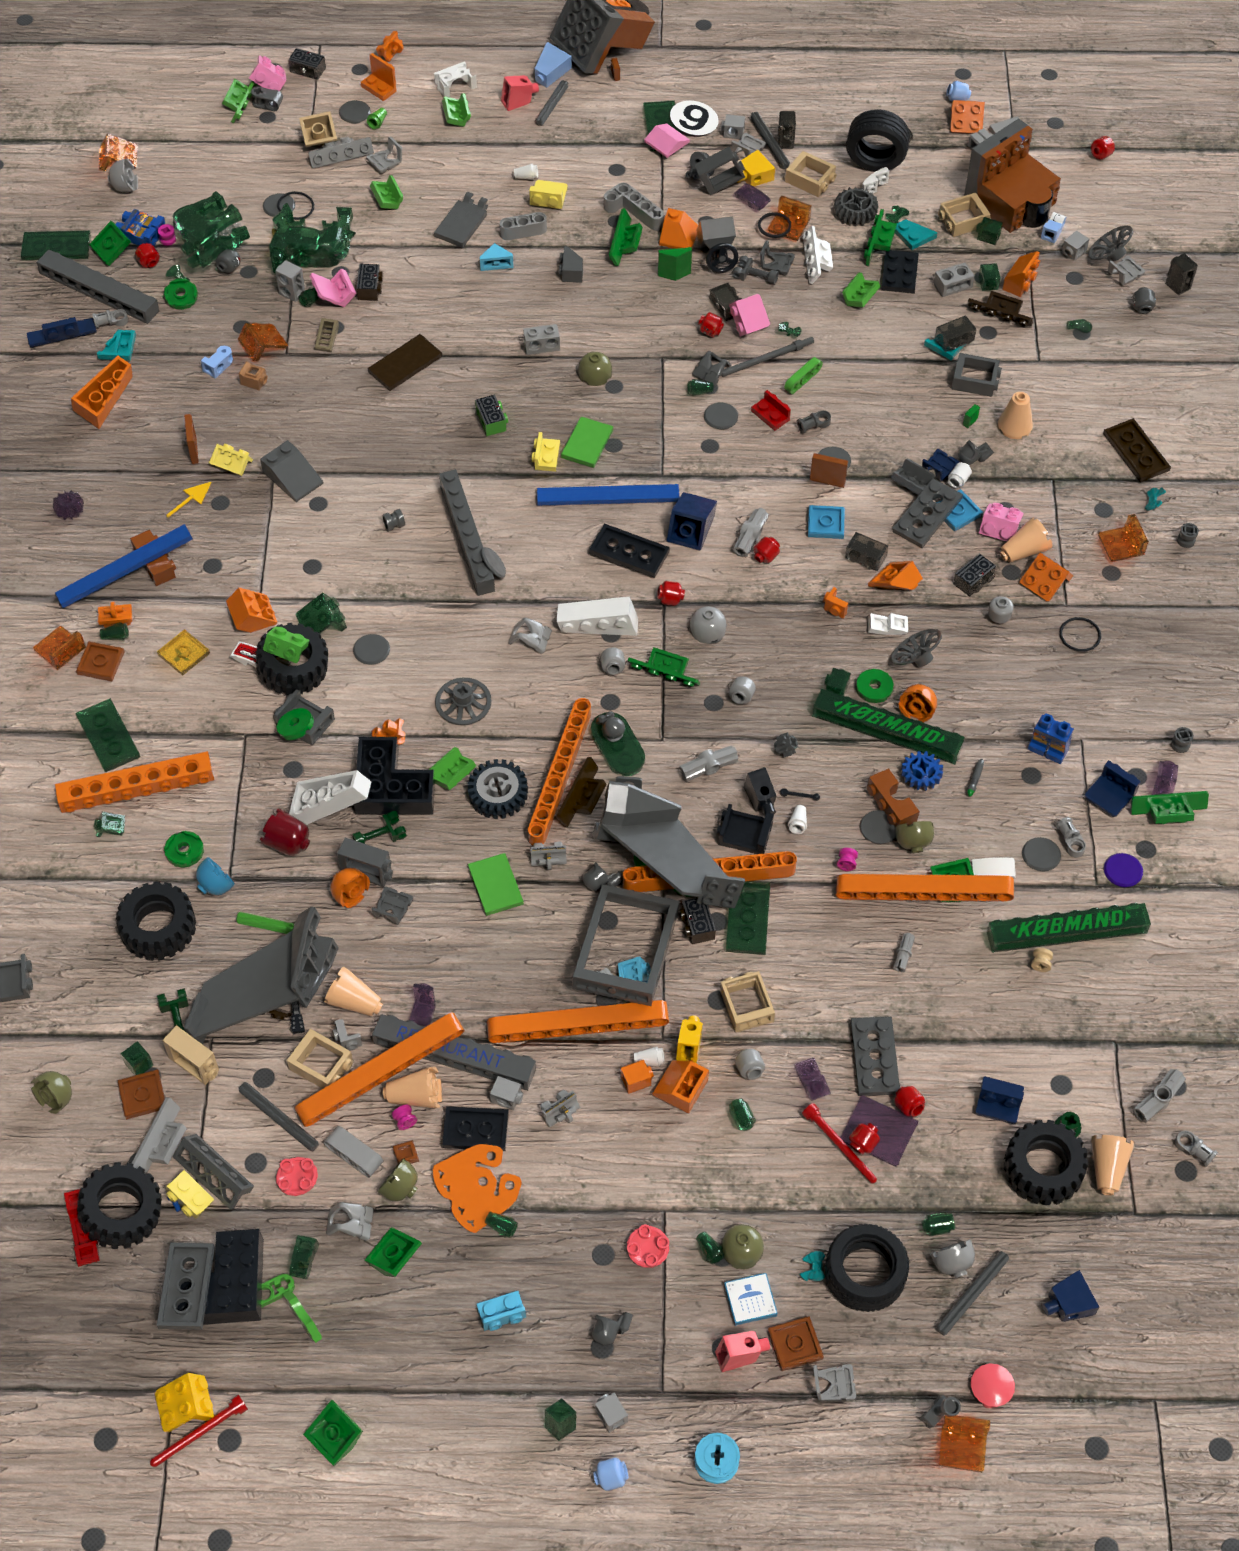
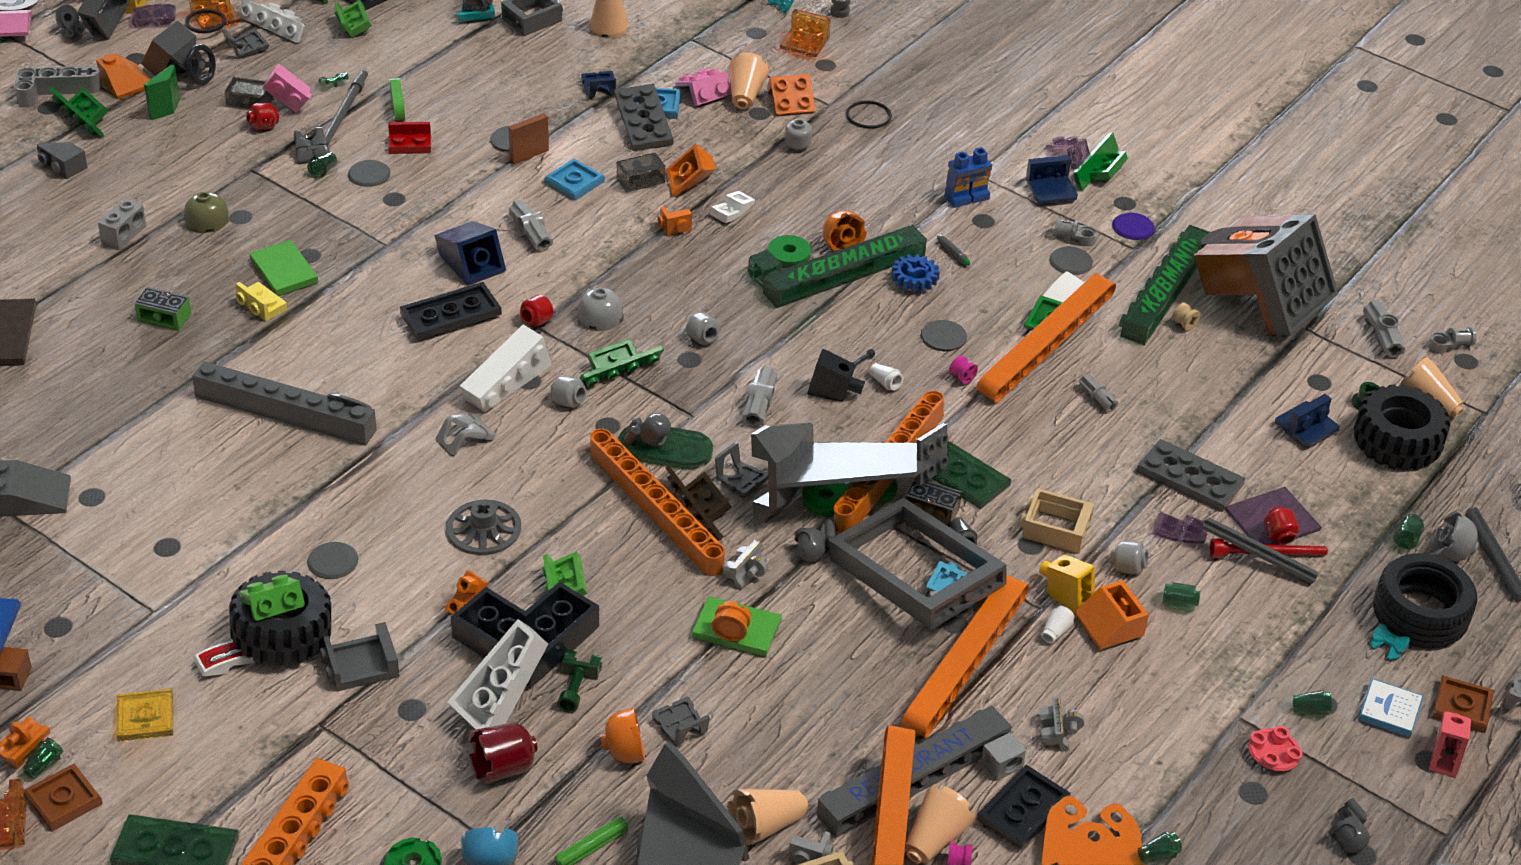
camera: 55 degrees left, 15 degrees down
(250, 610) = (166, 622): orange slope -> none
(300, 716) = (361, 653): green tile -> none
(321, 614) = (241, 564): clear green bracket -> none
(367, 859) = (591, 698): dark grey window -> none
(393, 519) = (196, 447): dark grey wheel -> none
(424, 1004) = (830, 763): clear purple bracket -> none
(483, 878) = (731, 621): none -> orange wheel
(485, 795) = (626, 569): wheel -> none
(608, 494) = (363, 290): blue tile -> none
(636, 1076) = (1071, 646): orange brick -> none
(685, 955) = (961, 527): none -> dark grey cone
(742, 1246) = (1331, 674): olive cylinder -> none
(744, 831) = (863, 416): black panel -> none
(747, 264) = (229, 64): dark grey bar -> none
(766, 550) = (564, 226): red head -> none
(786, 744) = (796, 335): dark grey gear -> none
(813, 421) = (455, 121): dark grey connector -> none
(827, 1138) = (1260, 550): none -> dark grey axle
(898, 812) = (913, 308): dark orange arch -> none
(909, 1101) = (1263, 476): red head -> none
(913, 476) = (595, 101): dark grey bracket -> none
(915, 836) = (984, 313): olive cylinder -> none
(921, 654) = (791, 201): dark grey wheel -> none
(959, 475) = (625, 76): white brick -> none
(970, 452) = (613, 57): dark grey piece -> none
(971, 416) = (573, 38): green tile -> none
(974, 575) = (743, 129): brick -> none
(1129, 982) = (1274, 259): none -> piece
(1182, 740) = (1041, 120): dark grey wheel -> none

